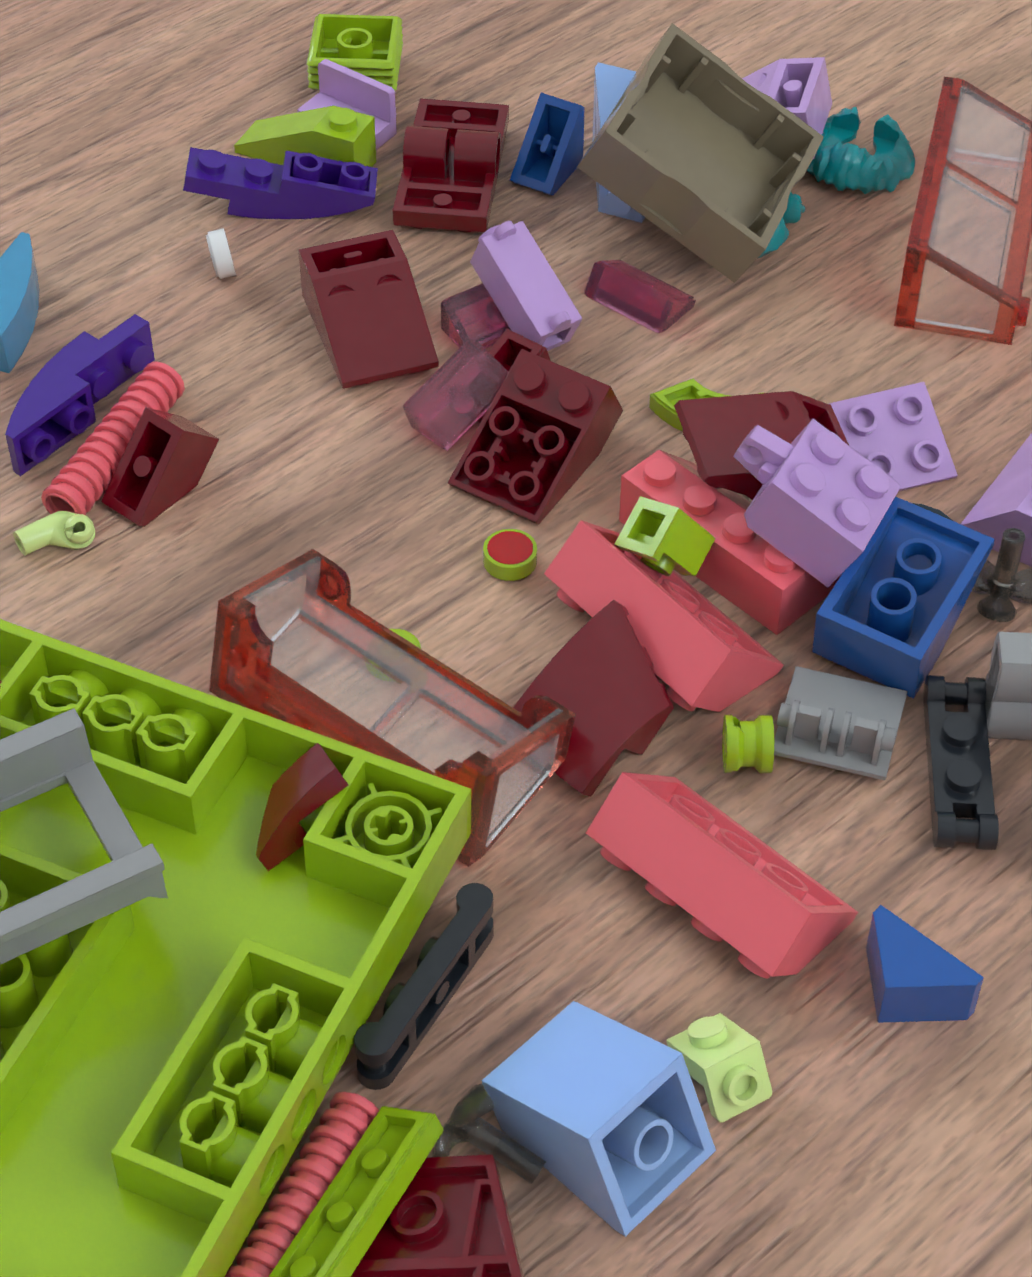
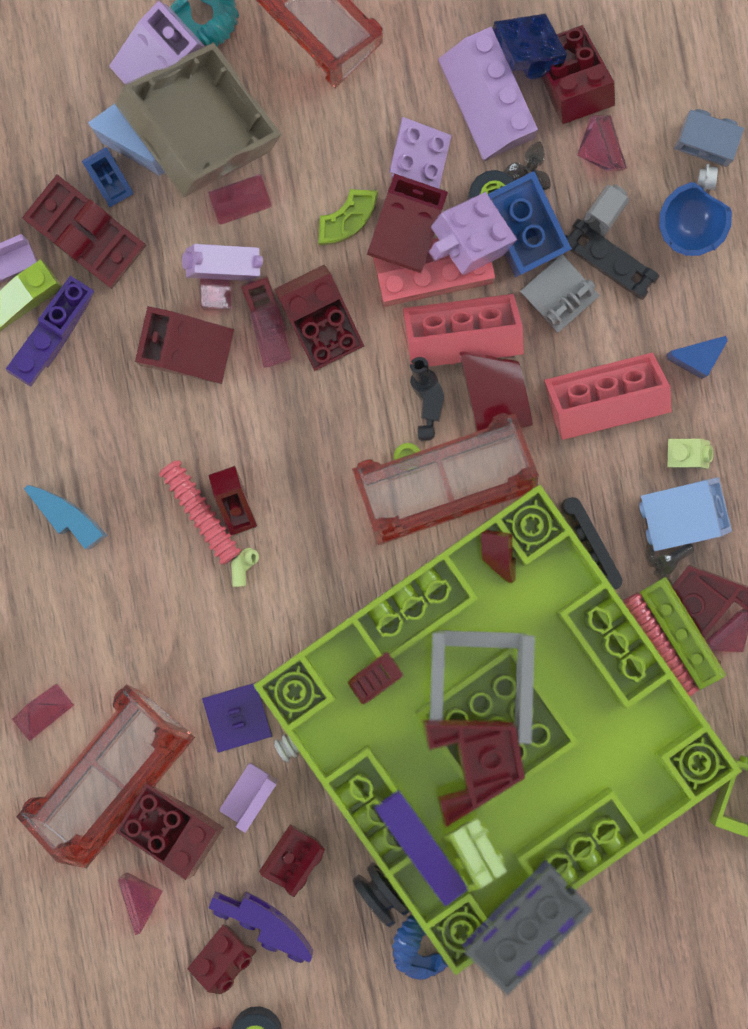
camera: 60 degrees left, 40 degrees up
(63, 392) = (157, 526): dark purple slope -> none
(220, 253) = (88, 391): white tile -> none
(510, 554) = (379, 371): tile -> none
(523, 627) = (430, 392): none -> black arm
(665, 538) = (438, 310): lime brick -> none
(748, 744) = (552, 342): lime wheel -> none

